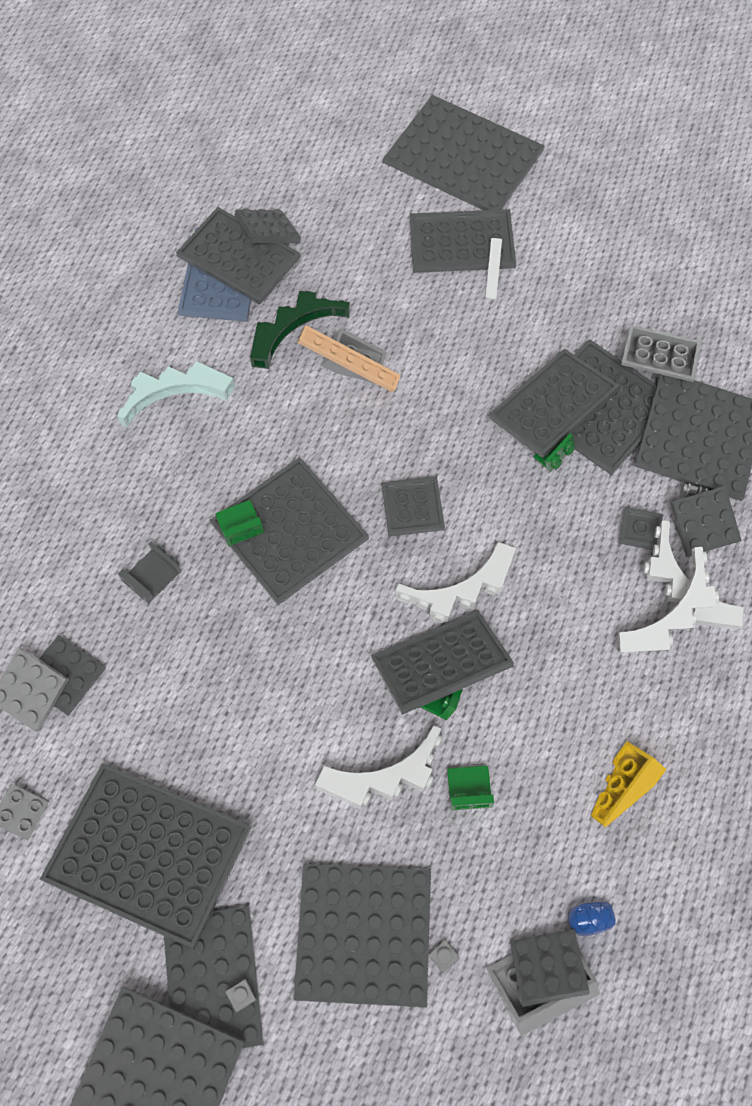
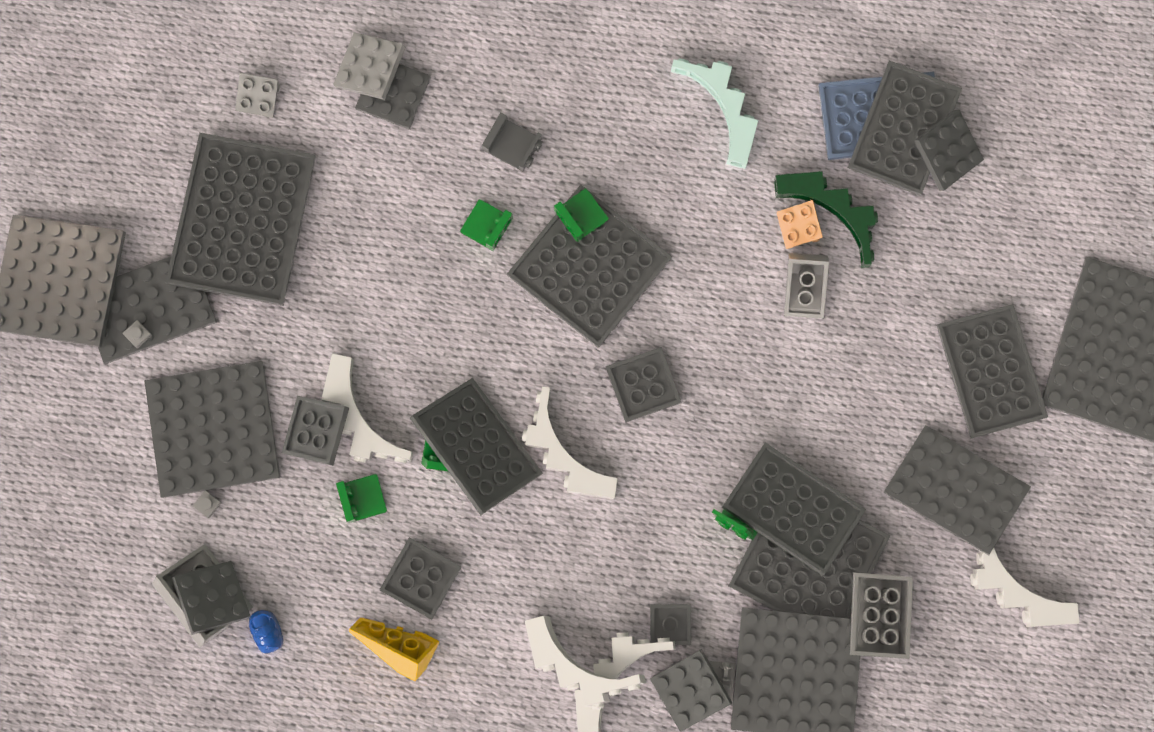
camera: 75 degrees right, 15 degrees up
(224, 611) = (486, 224): none -> green bracket
(296, 356) = (799, 224): none -> light nougat hinge
(348, 358) = (793, 279): light nougat plate -> none
(391, 818) = (315, 430): none -> dark grey plate
(493, 270) = (960, 413): white sticker -> none
(559, 282) = (957, 490): none -> dark grey plate
(561, 746) = (420, 578): none -> dark grey plate
(653, 264) = (1011, 594): none -> white arch

